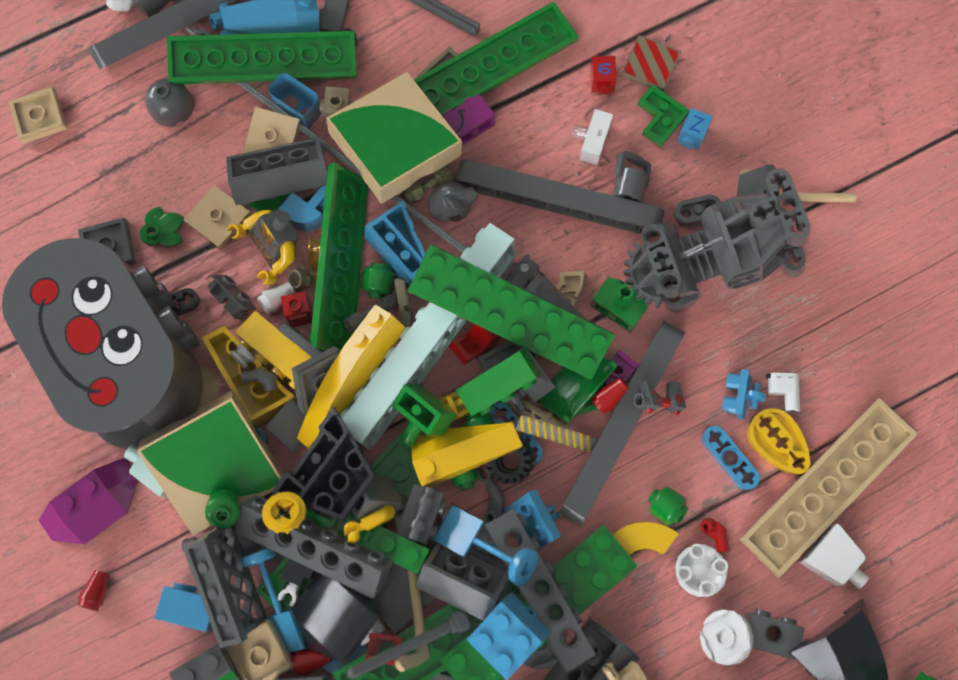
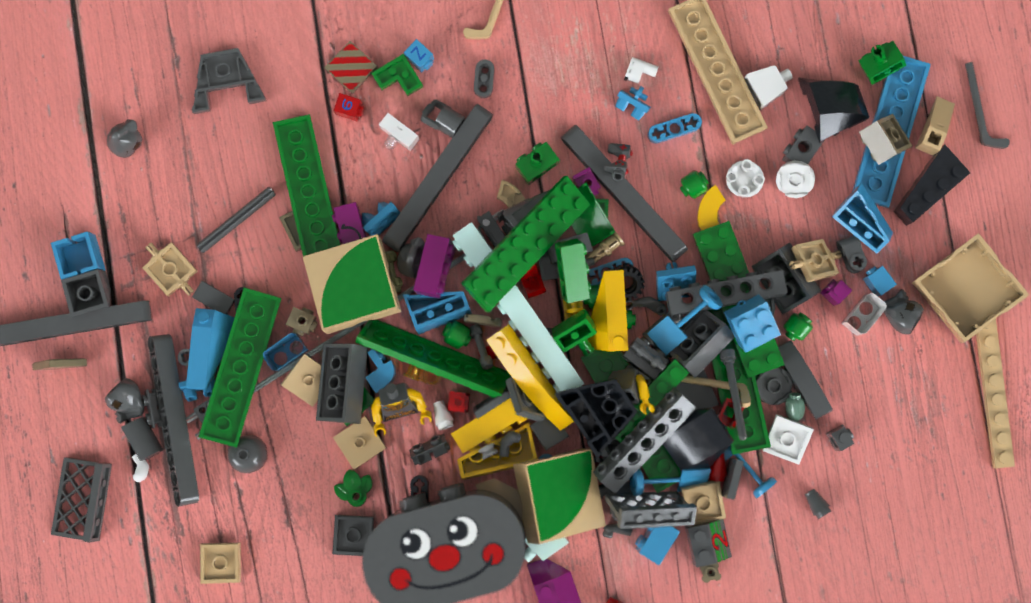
camera: 70 degrees left, 10 degrees up
(223, 509) = (598, 496): green head -> none
(285, 501) = (609, 449): yellow gear -> none
(297, 576) = (659, 459): black piece -> none
(299, 278) = (433, 393): dark tan plate -> none
(447, 221) = (434, 266): none -> magenta wedge
(480, 150) = (377, 224): none -> dark azure tile
(556, 433) = (619, 243): sticker -> none
(610, 395) = (604, 195): red cone -> none
(717, 532) = (723, 157): red arm -> none
(739, 241) = (525, 71): dark grey connector -> none
(787, 429) = (668, 81): yellow piece -> none

